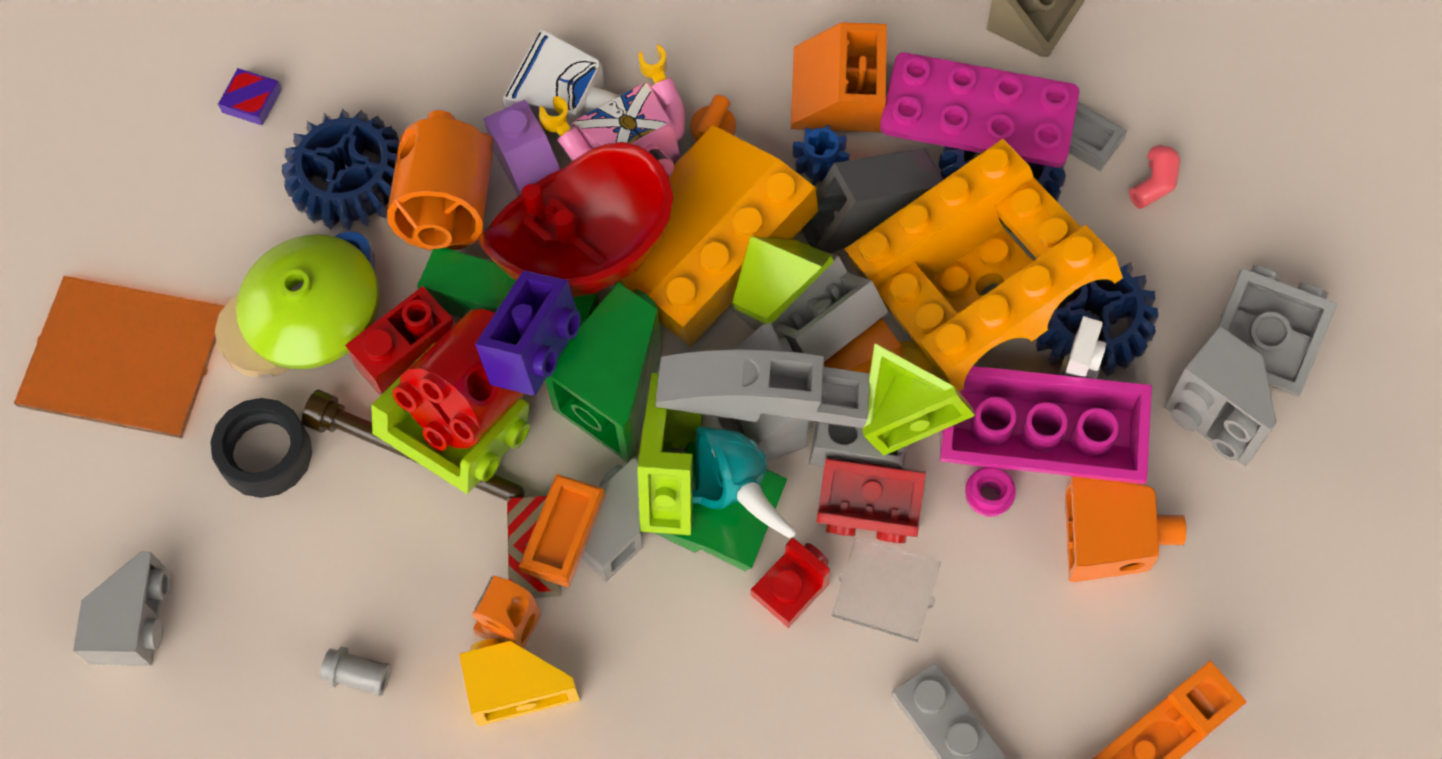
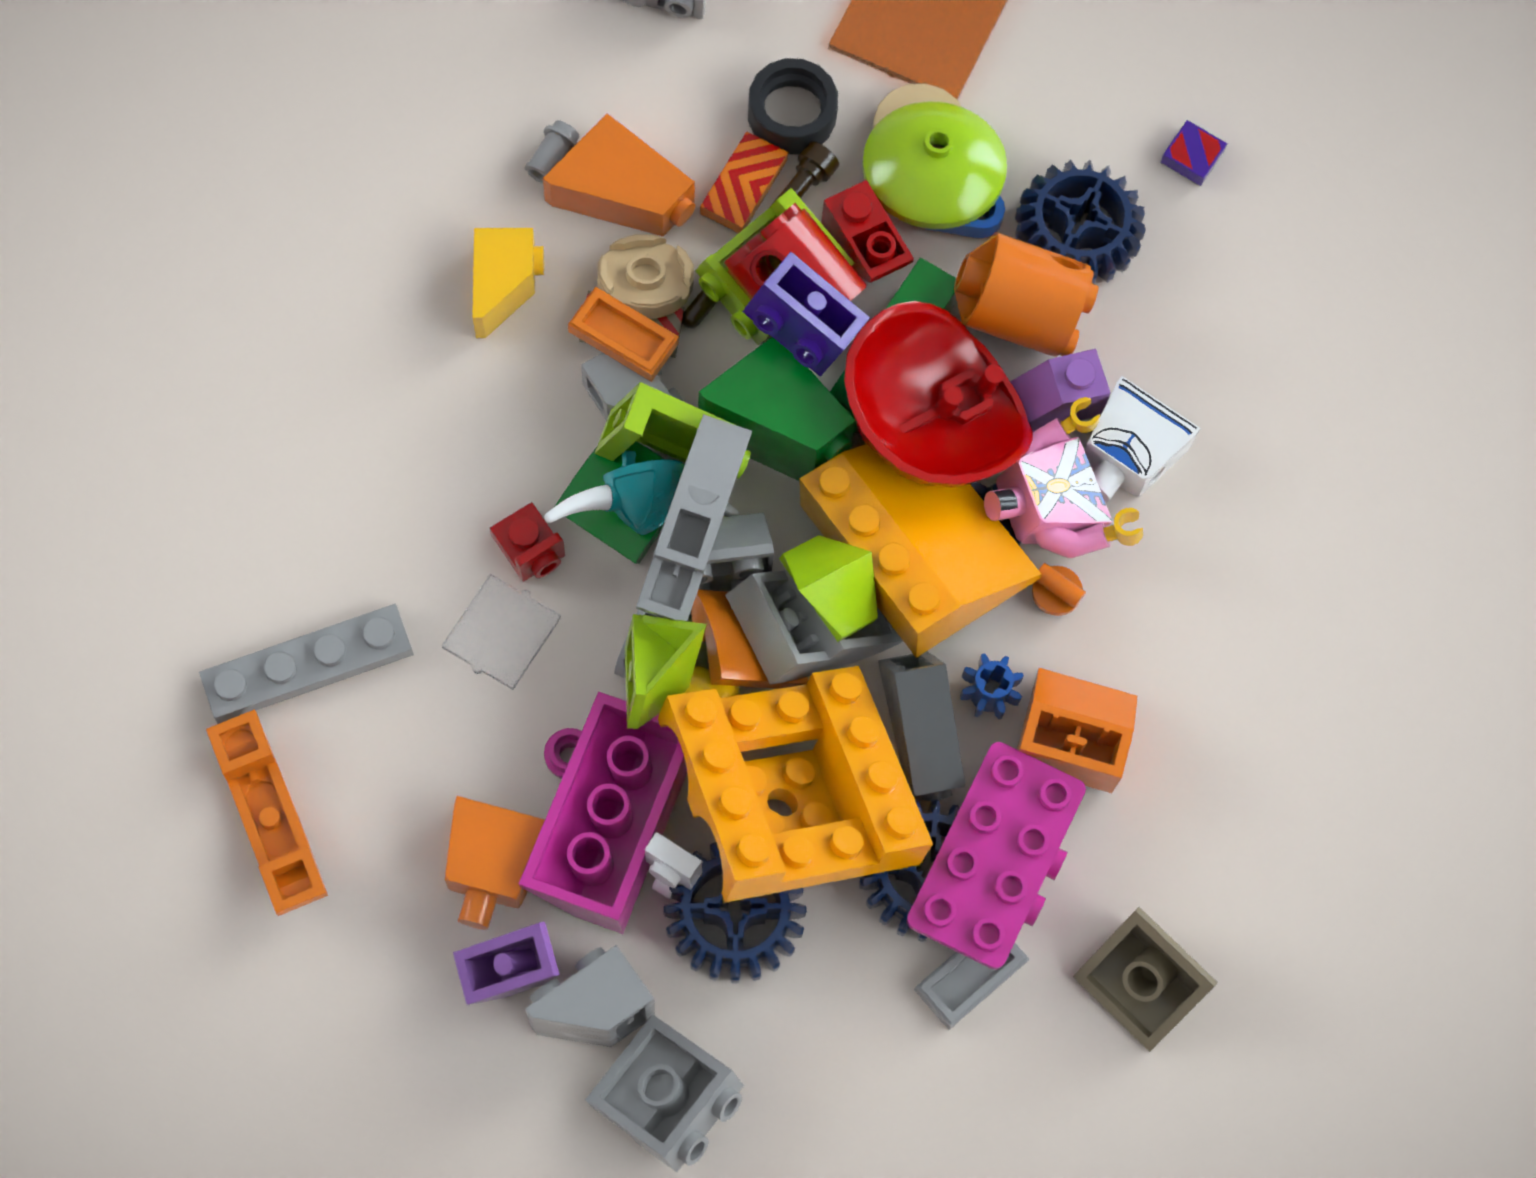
camera: 95 degrees right, 5 degrees up
(354, 478) = (743, 182): none -> tile
(378, 589) = (620, 181): none -> orange slope
(479, 540) = (647, 274): none -> tan tile
(506, 612) = (561, 277): orange leg -> none
(870, 499) = (585, 631): red bracket -> none
(1163, 178) = (885, 1049): coral arm -> none
(1218, 473) = (506, 964): none -> medium lavender slope

